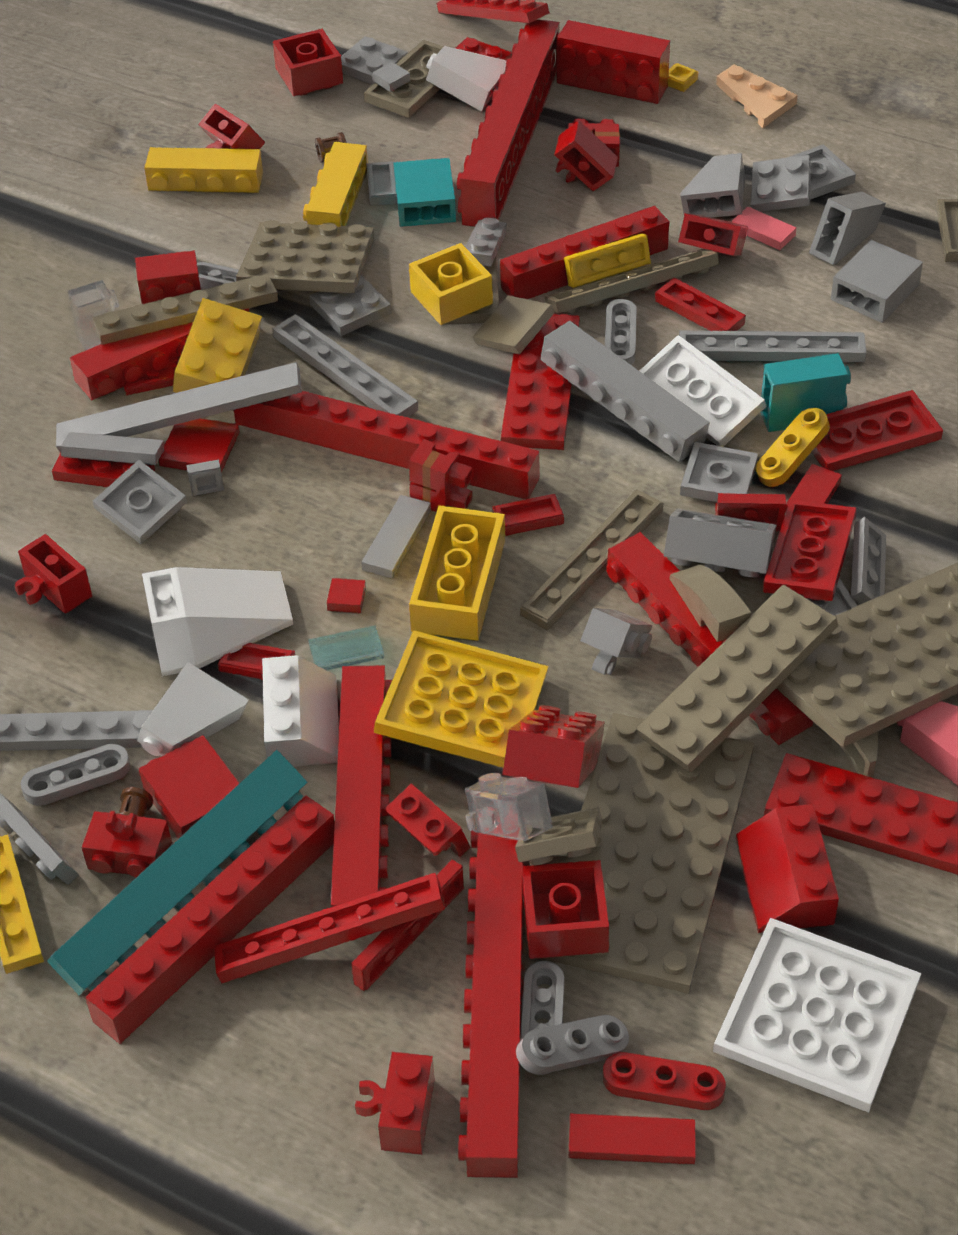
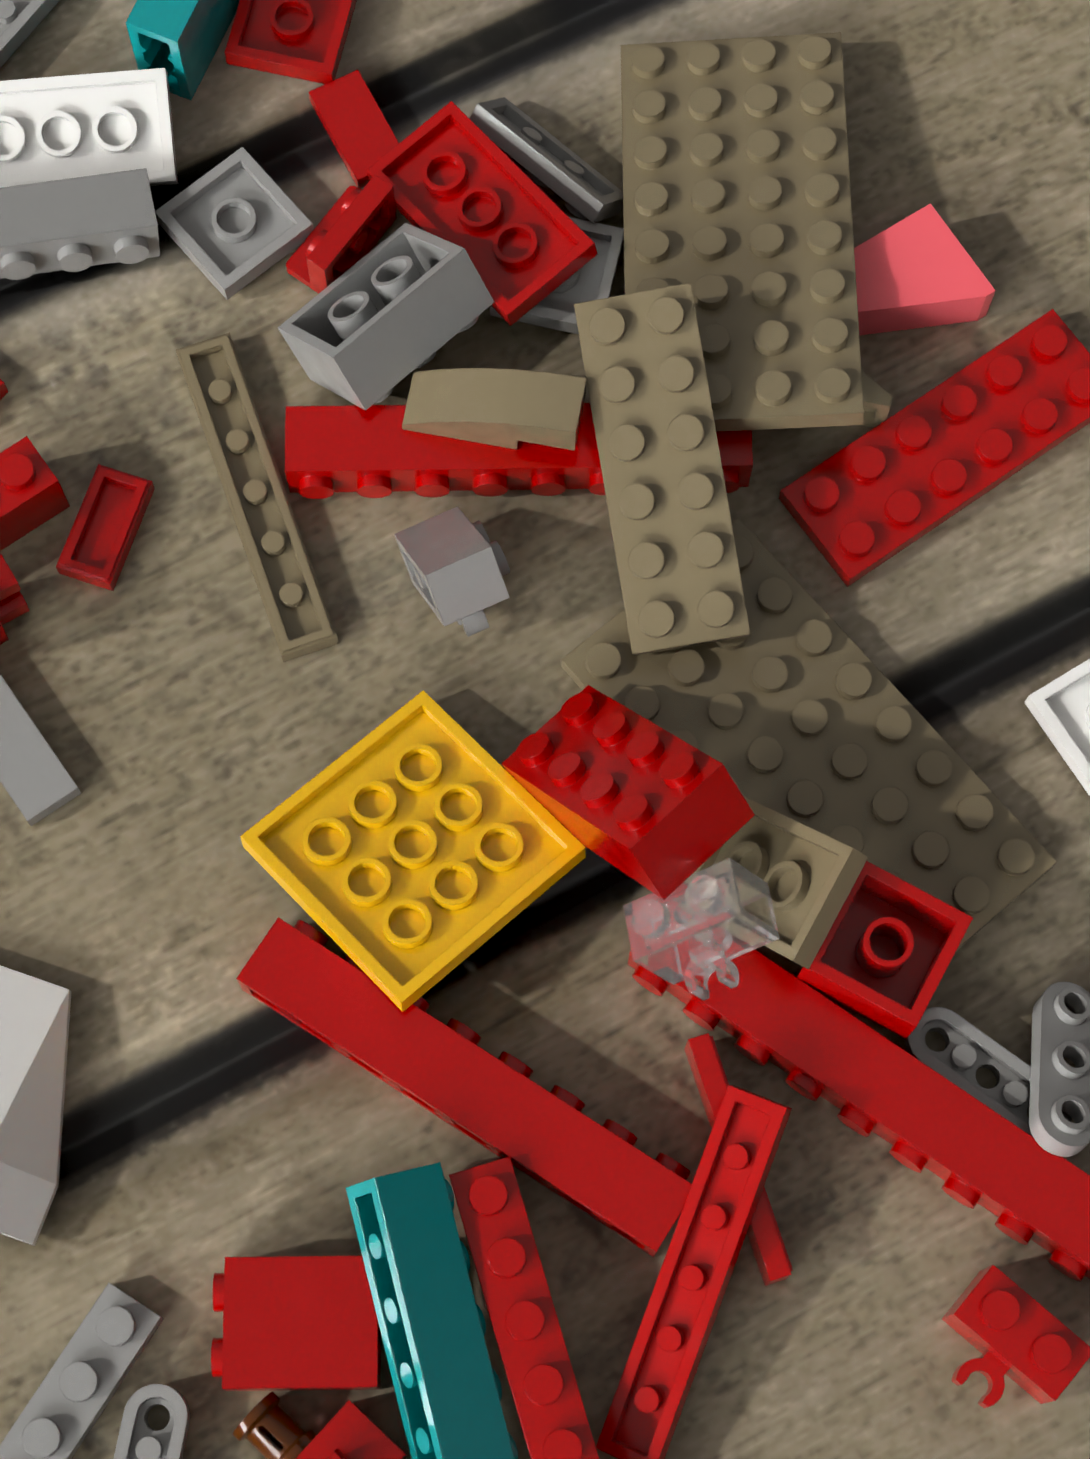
camera: 60 degrees left, 25 degrees up
(188, 710) = (160, 1255): white slope -> none
(249, 659) = (108, 1084): red tile -> none
(300, 711) = (260, 1085): white slope -> none
(346, 595) = (71, 881): red tile -> none
(346, 648) = (174, 944): clear light blue tile -> none
(427, 822) = (596, 1034): red bracket -> none
(457, 573) = (167, 700): yellow brick -> none
(788, 869) = (967, 622): red slope -> none
(806, 432) = (278, 114): yellow plate -> none

